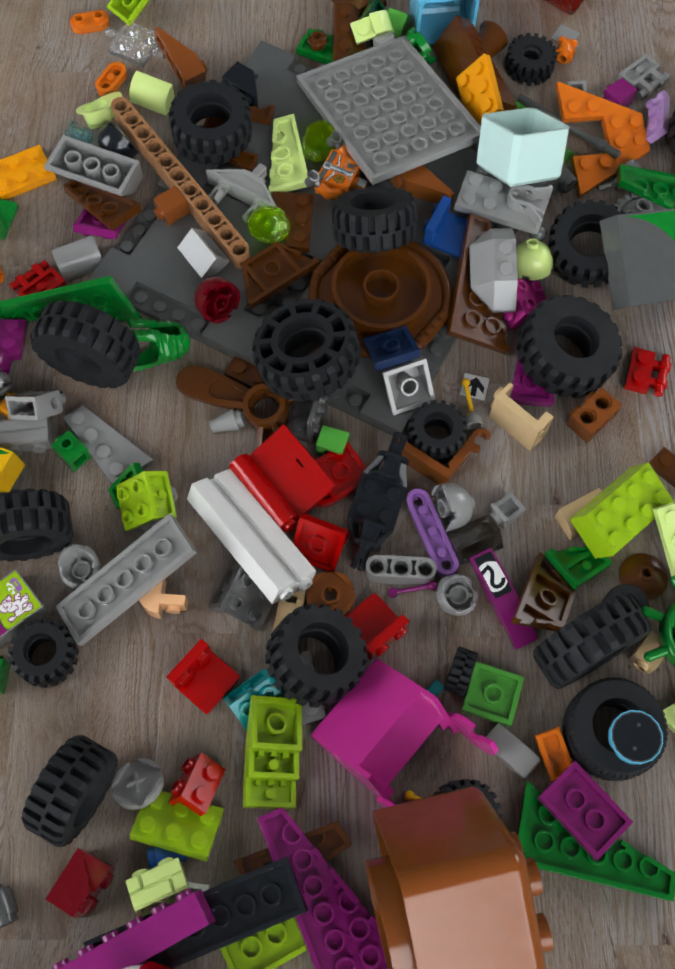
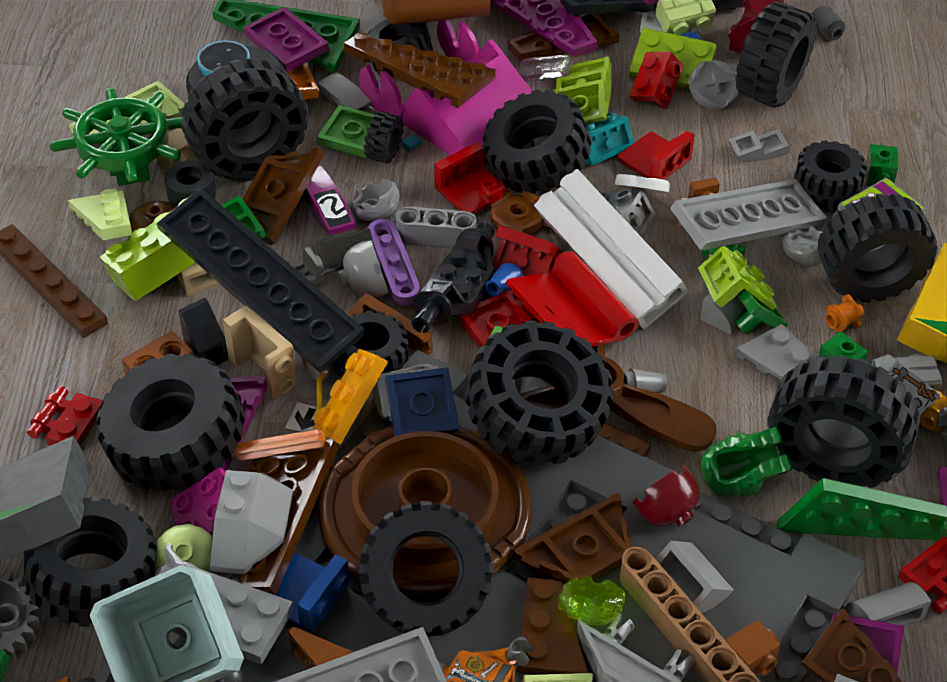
camera: 175 degrees left, 20 degrees down
(66, 490) = (844, 314): none -> orange brick
(103, 704) = (766, 146): none -> light grey slope
(162, 626) = (703, 187): none -> dark orange plate
(218, 625) = (649, 184): none -> white tile
(311, 802) = (545, 68): none -> clear plate
(338, 511) = (496, 284): none -> blue cone
(349, 605) = (491, 190): none -> red plate
(423, 719) = (423, 69): none -> reddish brown wing
(444, 368) = (349, 394): none -> light orange plate
(486, 332) = (280, 444): none -> orange axle
(537, 452) = (261, 279): none -> black plate
(567, 434) = (203, 332): none -> black slope

